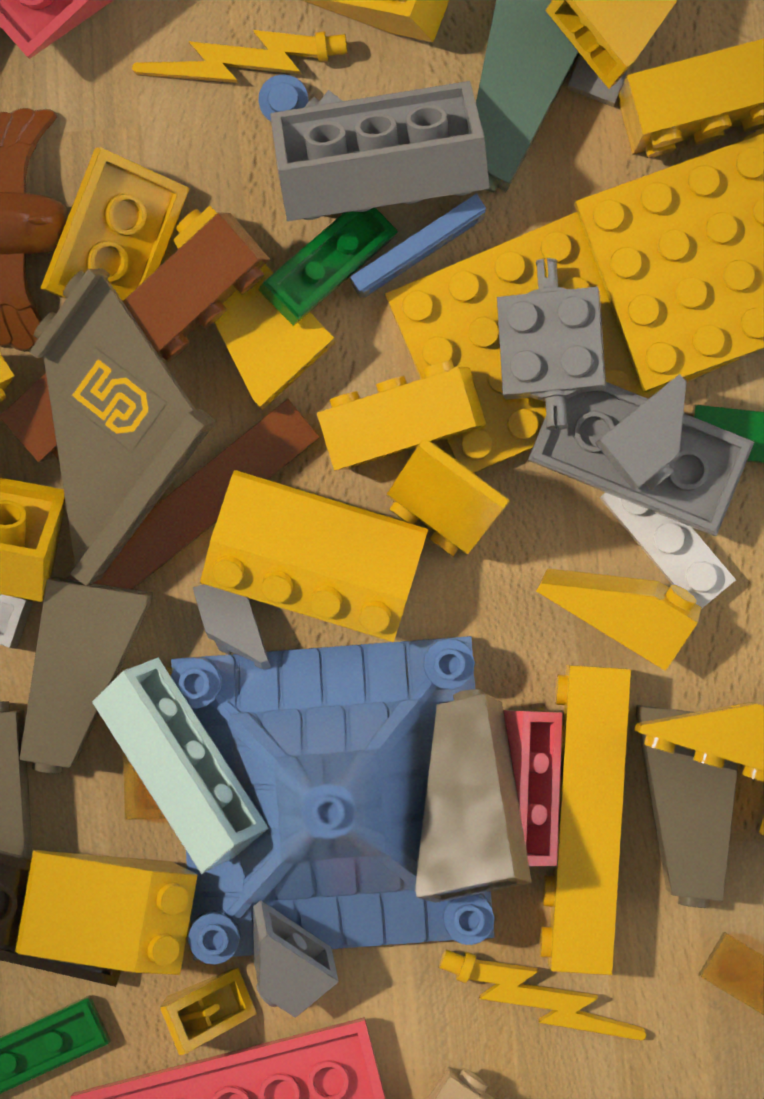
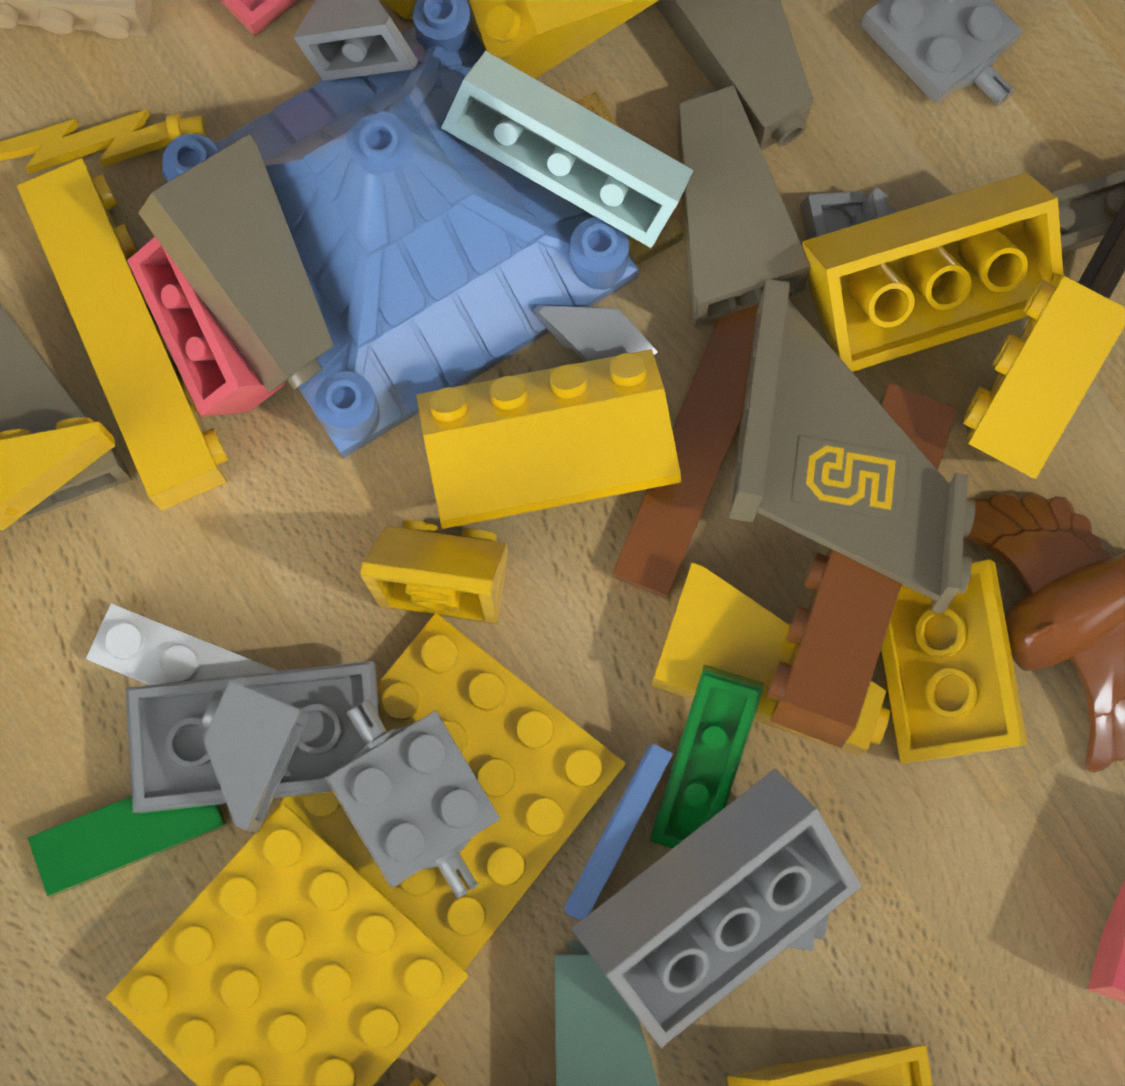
camera: 145 degrees right, 10 degrees down
(272, 58) = (892, 959): yellow piece -> none
(282, 94) = (858, 921): medium blue plate -> none
(400, 415) = (534, 634): yellow brick -> none
(632, 611) = (186, 562): yellow slope -> none

